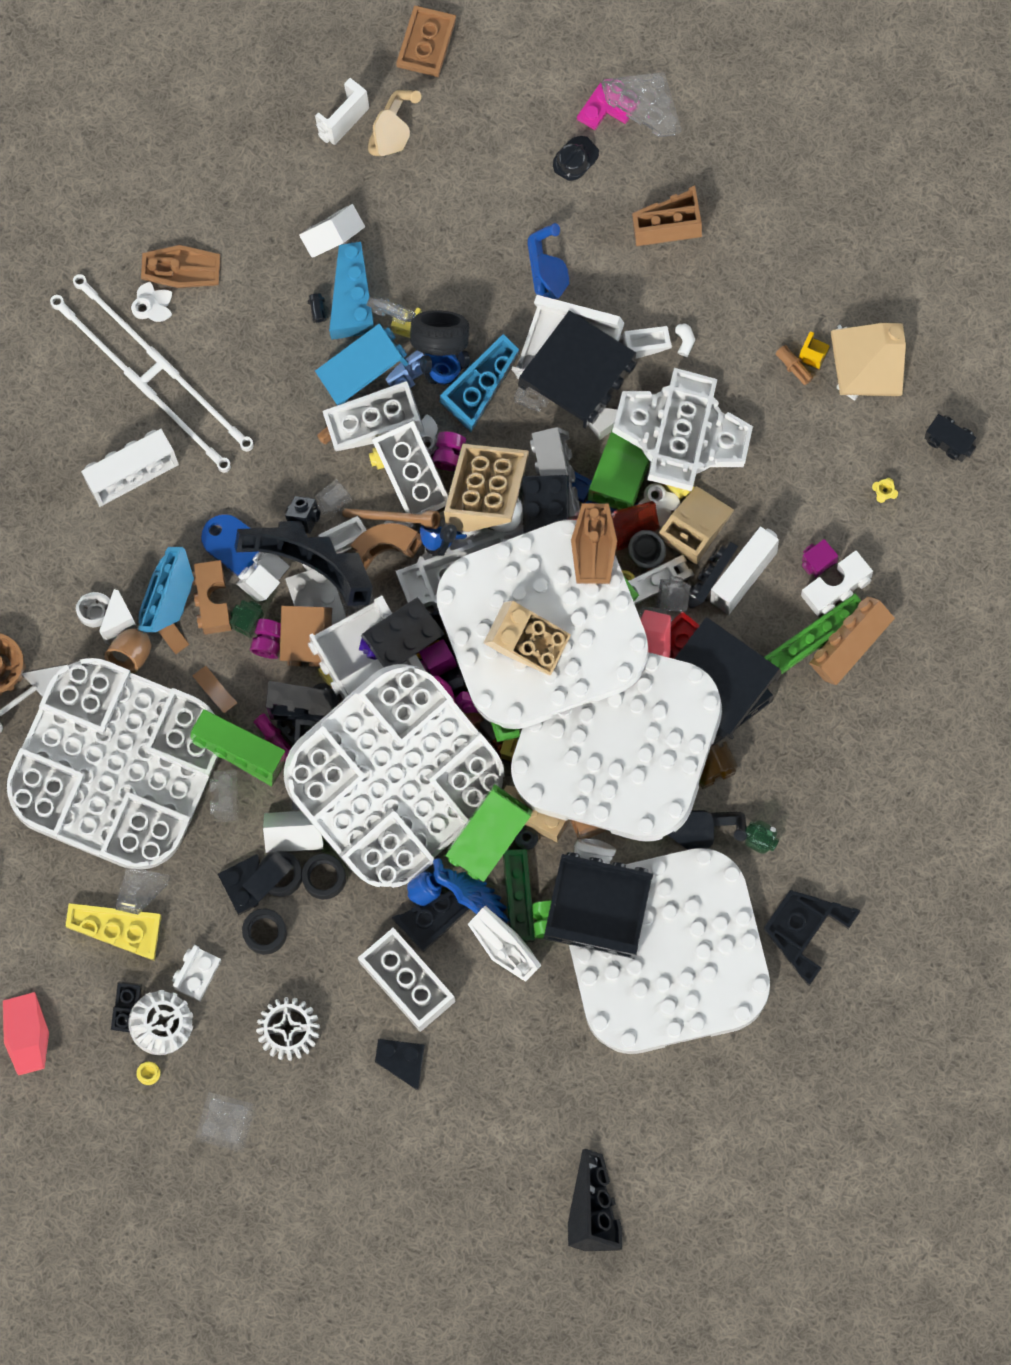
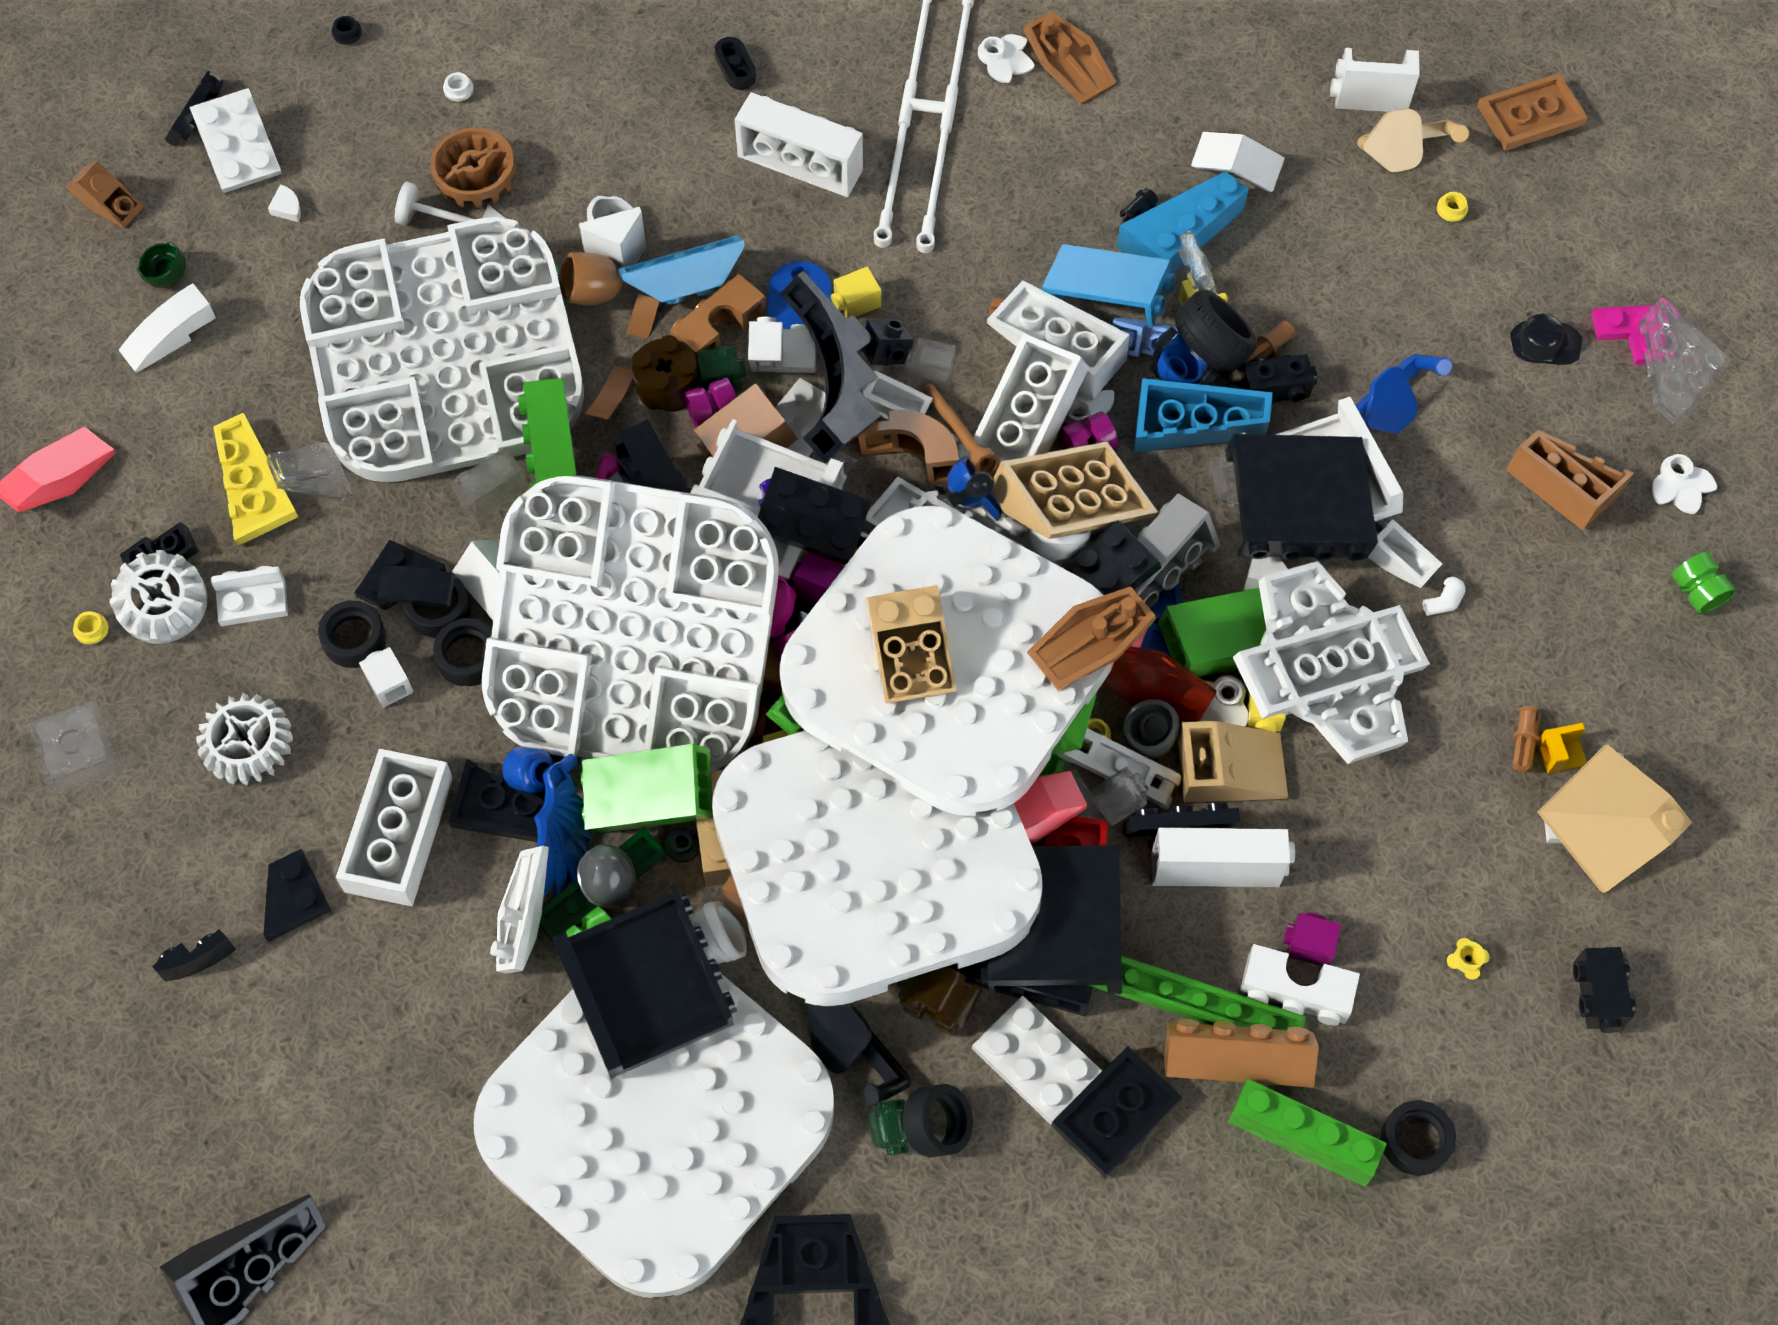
camera: 45 degrees right, 10 degrees down
(34, 461) = (736, 65): none -> black plate
(218, 642) = (664, 372): none -> dark brown brick
(254, 508) = (856, 293): none -> light yellow brick
(306, 929) = (386, 676): none -> white brick
(400, 1138) = (180, 963): none -> black slope
(453, 131) = (1455, 200): none -> light yellow plate
(462, 303) = (1269, 344): none -> medium nougat axle
(488, 324) = (1285, 377): none -> black brick
(519, 887) = (606, 876): none -> dark grey hat
(718, 162) = (1682, 489): none -> white plate
(769, 820) = (958, 1119): none -> black tyre
(777, 742) = (1036, 1059): none -> white plate
(780, 203) = (1705, 586): none -> bright green wheel
(834, 723) = (1116, 1111): none -> black plate
(913, 639) = (1307, 1132): none -> bright green brick
(947, 603) = (1440, 1121): none -> black tyre

